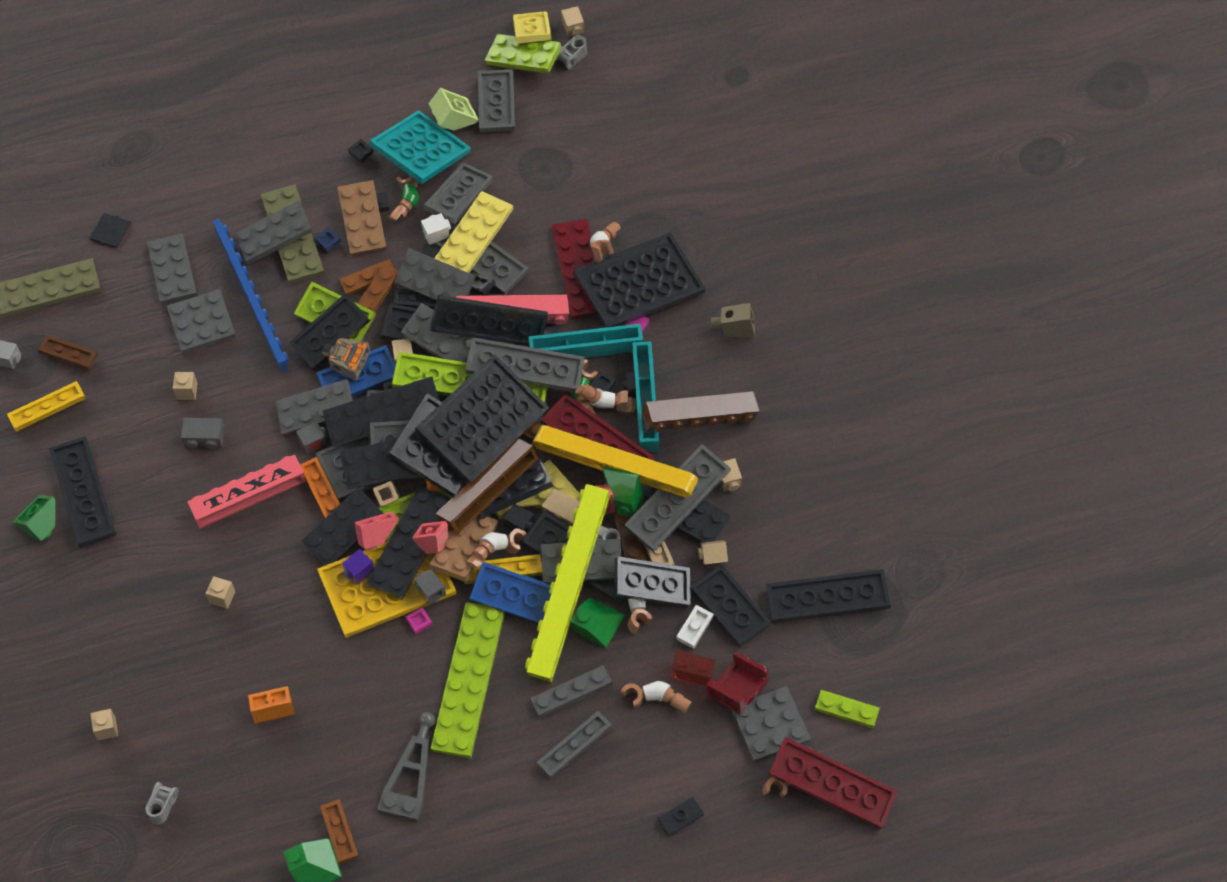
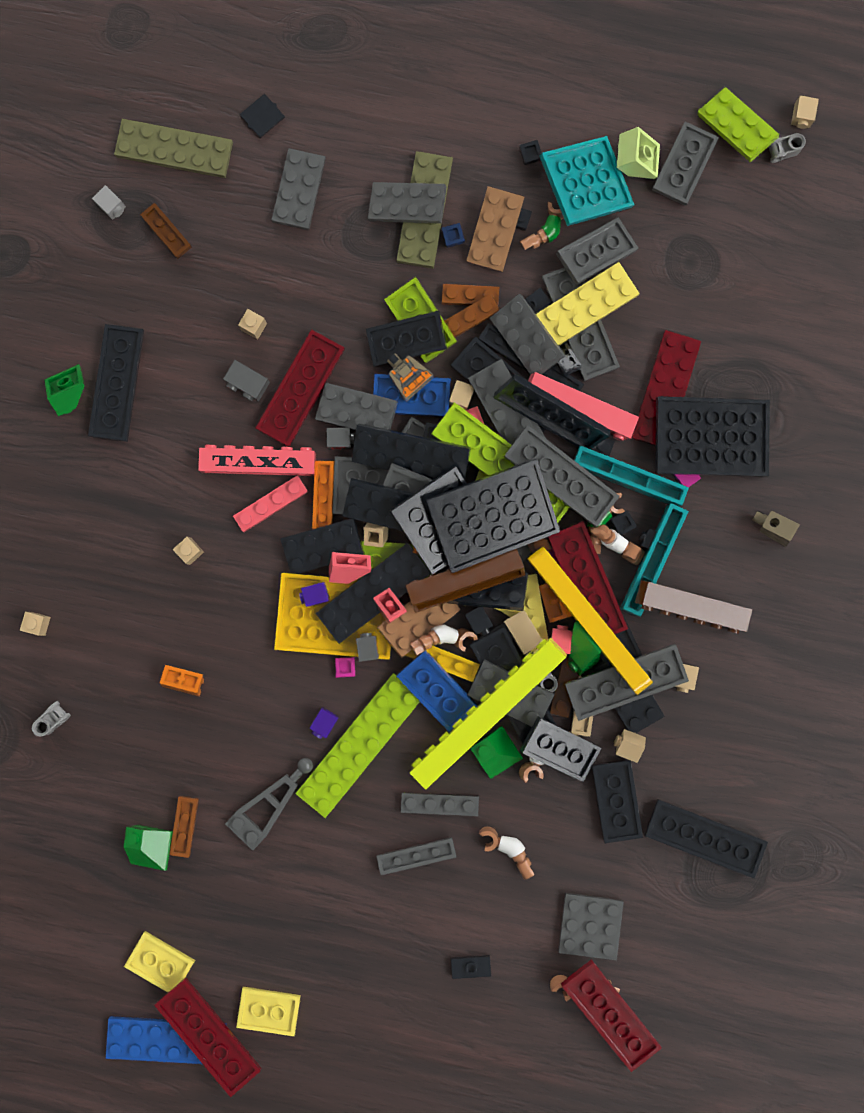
camera: 25 degrees right, 25 degrees up
(46, 406) = (122, 277): yellow plate -> none
(201, 321) = (299, 260): dark grey plate -> none
(254, 300) = (353, 302): blue plate -> none
(255, 416) = (300, 388): none -> dark red plate
(276, 521) = (270, 503): none -> coral plate
(424, 674) = (323, 723): none -> dark purple brick
(435, 228) = (556, 280): white brick -> none
(531, 27) = (761, 99): light yellow tile -> none
(578, 473) = (554, 607): none -> orange hinge
(601, 242) = (699, 375): nougat piece -> none
(693, 668) = (553, 844): clear red brick -> none
(694, 626) = (576, 804): white plate -> none
(739, 683) = (583, 880): dark red panel -> none
(847, 709) = (662, 948): lime plate -> none

